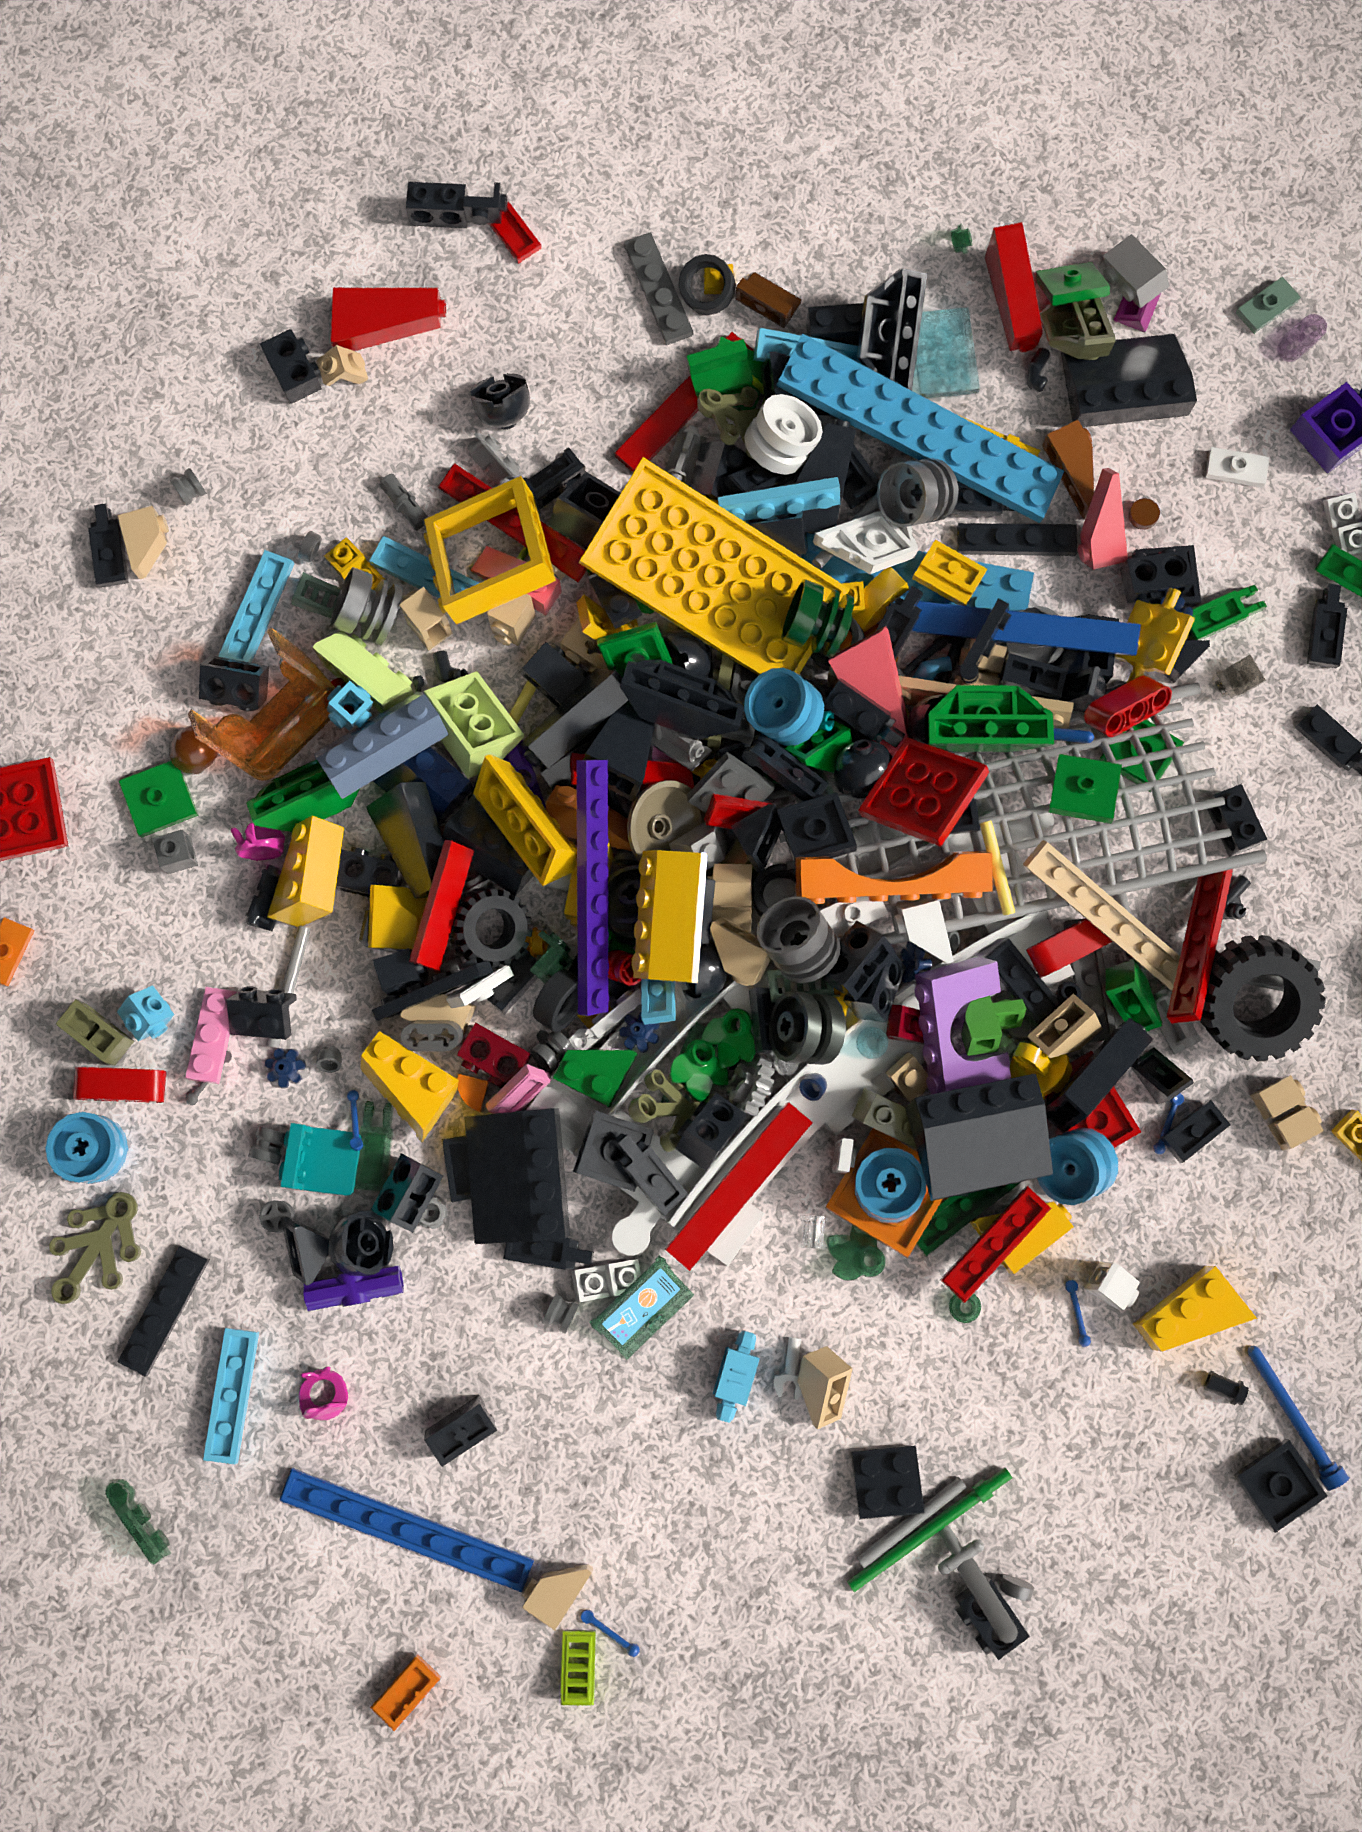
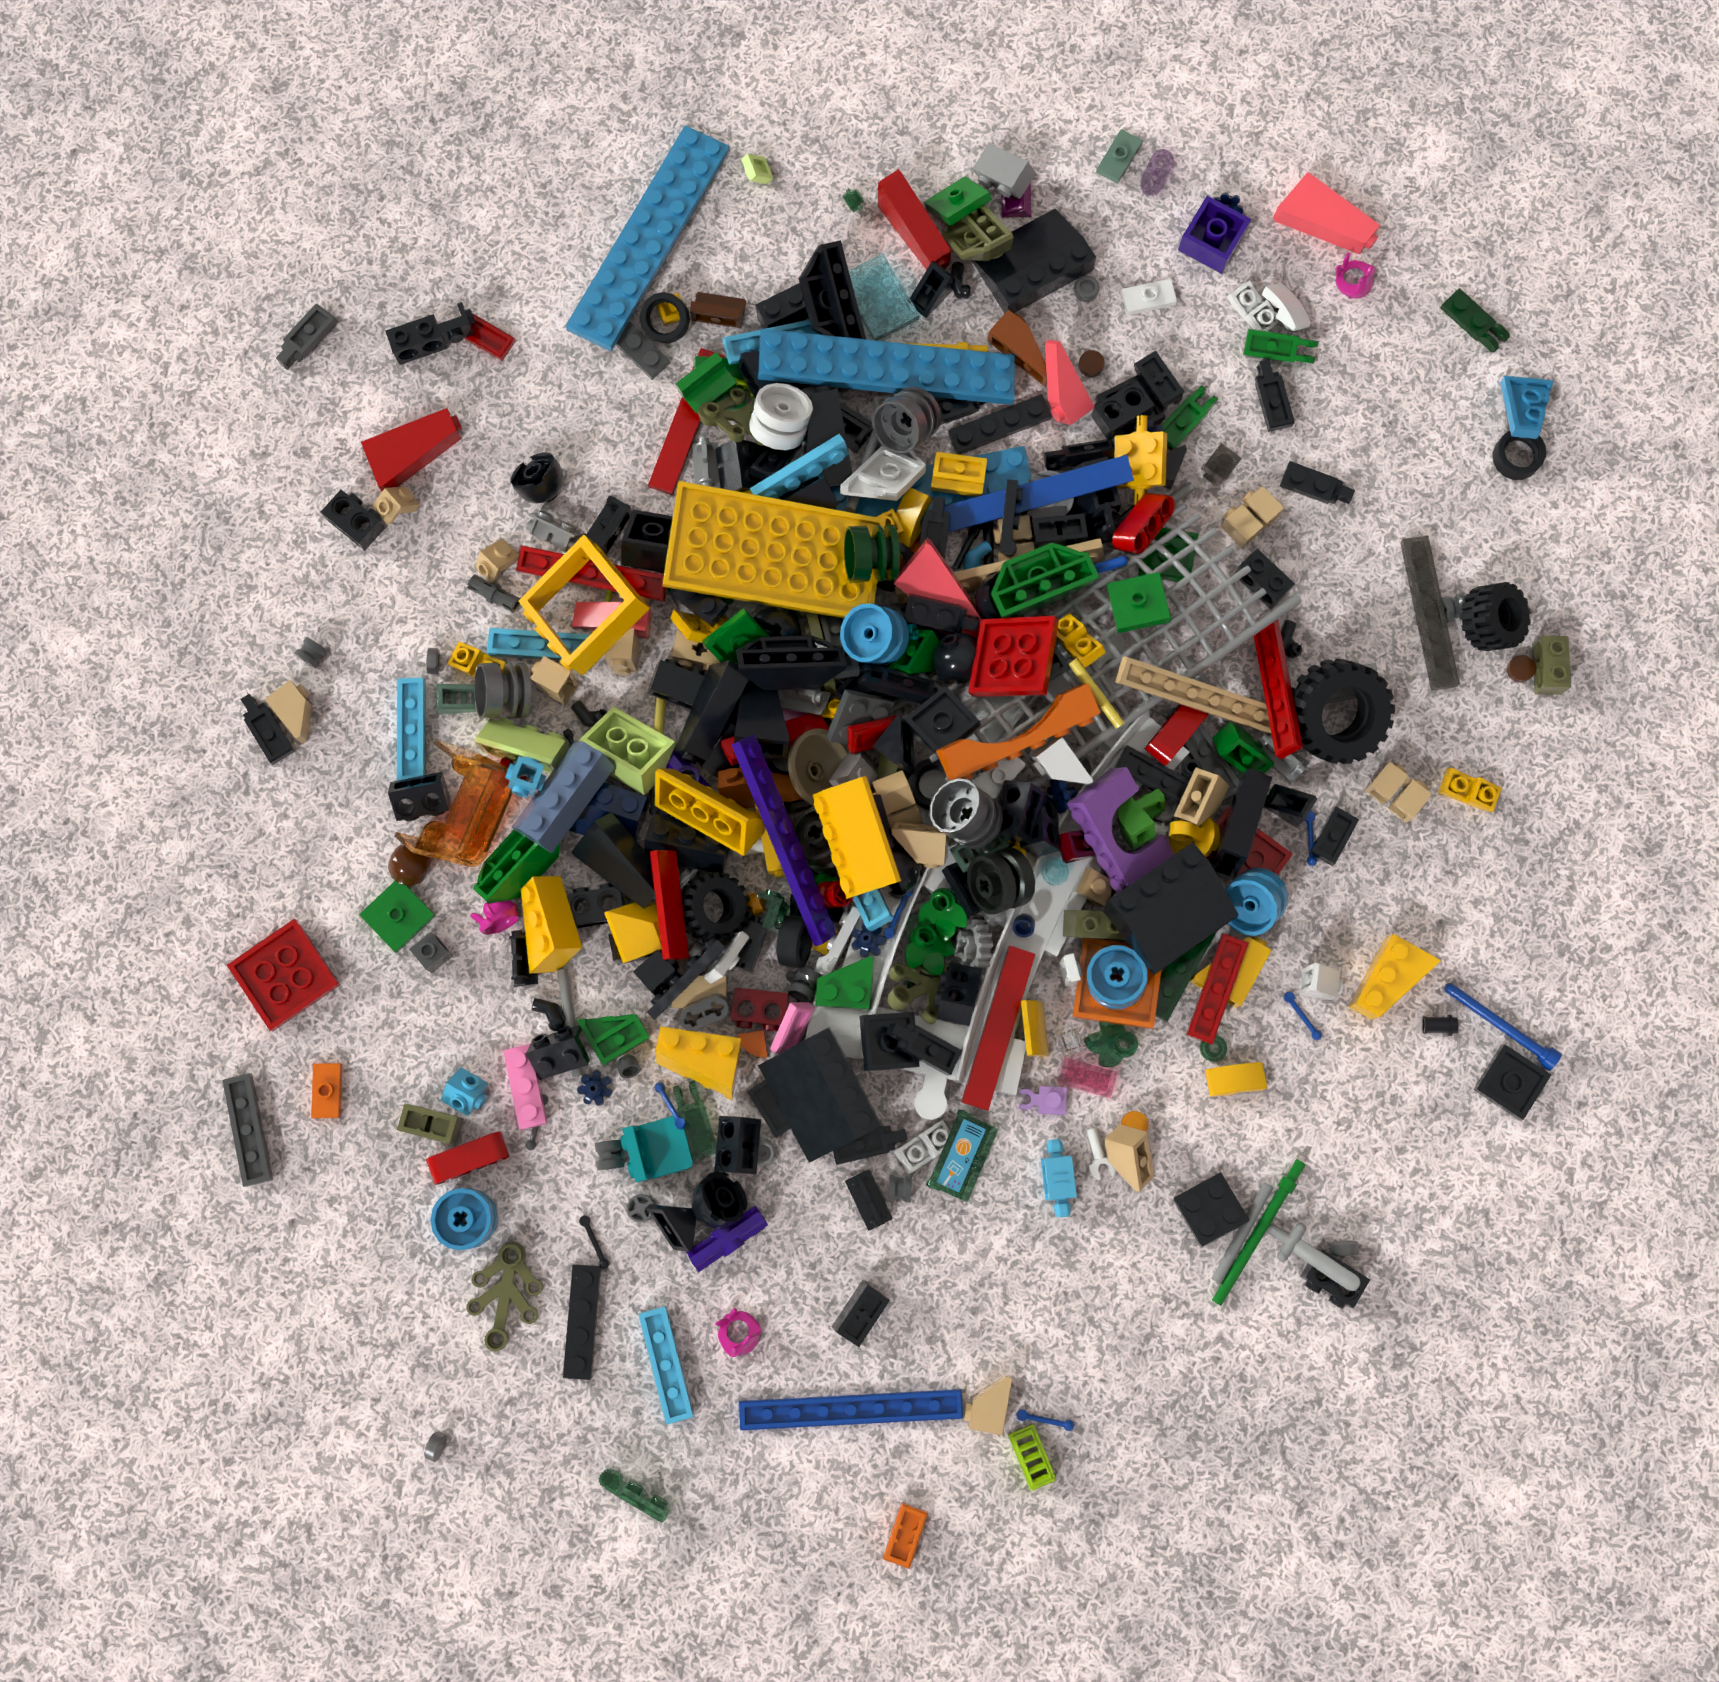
camera: 20 degrees left, 0 degrees up
(213, 1204) = (585, 1221): none -> black hinge
(274, 967) = (552, 1011): none -> black arm
(325, 157) = (305, 336): none -> dark grey hinge
(327, 1020) = (613, 1035): none -> green wing
(421, 466) = (496, 559): none -> tan bracket
(522, 1311) = (868, 1200): none -> black hinge
(665, 1033) = (889, 932): none -> blue hinge
(724, 194) = (647, 238): none -> dark azure plate
(762, 1287) = (1049, 1100): none -> lavender plate
(778, 1203) = (1035, 1028): none -> yellow slope
(813, 1280) = (1087, 1077): none -> clear pink tile
(846, 1350) = (1135, 1120): none -> light orange plate
(872, 167) = (757, 169): none -> yellowish green plate
(975, 1351) = (1236, 1079): none -> yellow slope
(1000, 803) = (1077, 642): none -> yellow slope
(1004, 366) = (932, 289): none -> black slope
(1088, 603) = (1078, 453): none -> black hinge
(1172, 432) = (1086, 288): none -> flat silver tile
(1211, 560) = (1159, 380): none -> black hinge
(1256, 746) = (1249, 518): none -> tan piece

